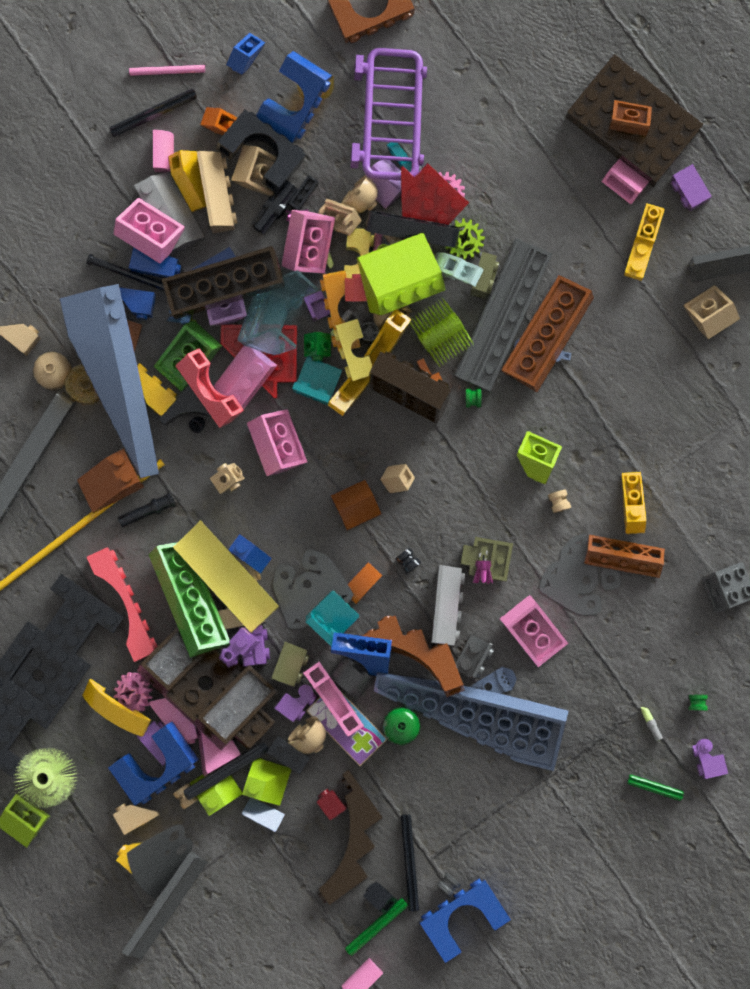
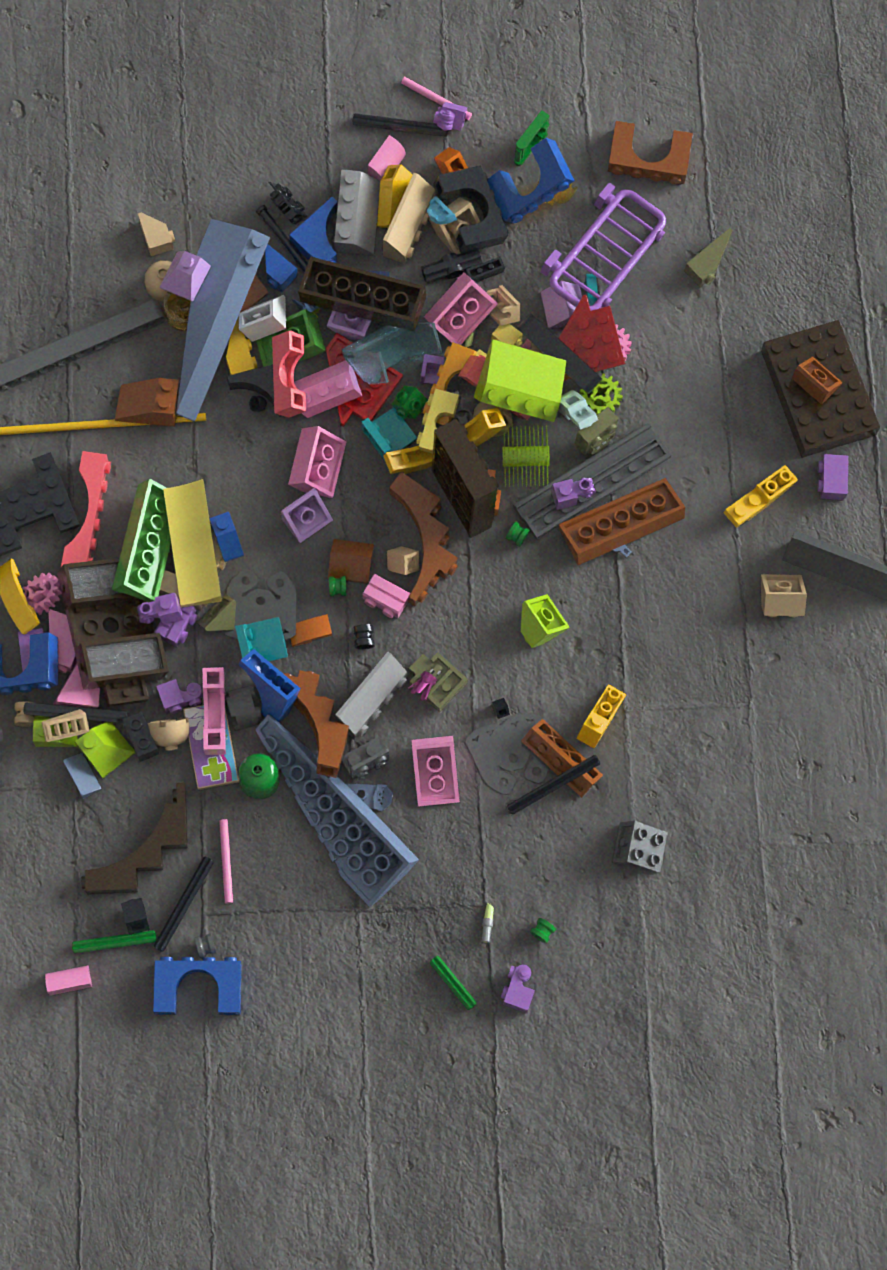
camera: 25 degrees right, 10 degrees down
(71, 360) = (185, 275): none -> lavender slope
(100, 235) = (283, 200): none -> black hinge
(148, 230) = (327, 211): bright pink slope -> none
(155, 351) = (263, 319): none -> white slope
(155, 506) = (172, 449): black pin -> none
(191, 81) = (450, 116): none -> medium lavender brick
(227, 478) = (252, 464): tan brick -> none
(236, 786) = (75, 730): none -> tan slope
(238, 171) = (439, 212): none -> medium azure tile
(245, 53) = (511, 124): blue slope -> none
(270, 46) = (534, 134): none -> green container
(284, 618) = (220, 616): none -> olive slope
(290, 664) = (194, 656): olive slope -> none
(298, 492) = (306, 515): none -> lavender slope
(330, 803) = (148, 802): dark red brick -> none
(360, 533) = (337, 586): none -> green wheel
(362, 195) = (535, 302): tan cylinder -> none
(403, 516) = (385, 596): none -> bright pink brick
(419, 807) = (226, 865): none -> bright pink bar
(423, 461) = (422, 506): none -> dark orange arch
(477, 72) = (705, 264): none -> olive slope
(494, 339) = (567, 492): none -> medium lavender brick
(551, 548) = (499, 705): none -> black piece
(559, 501) = (535, 671): tan wheel -> none
(625, 181) = (778, 435): bright pink brick -> none
(633, 583) = (553, 784): none -> black axle

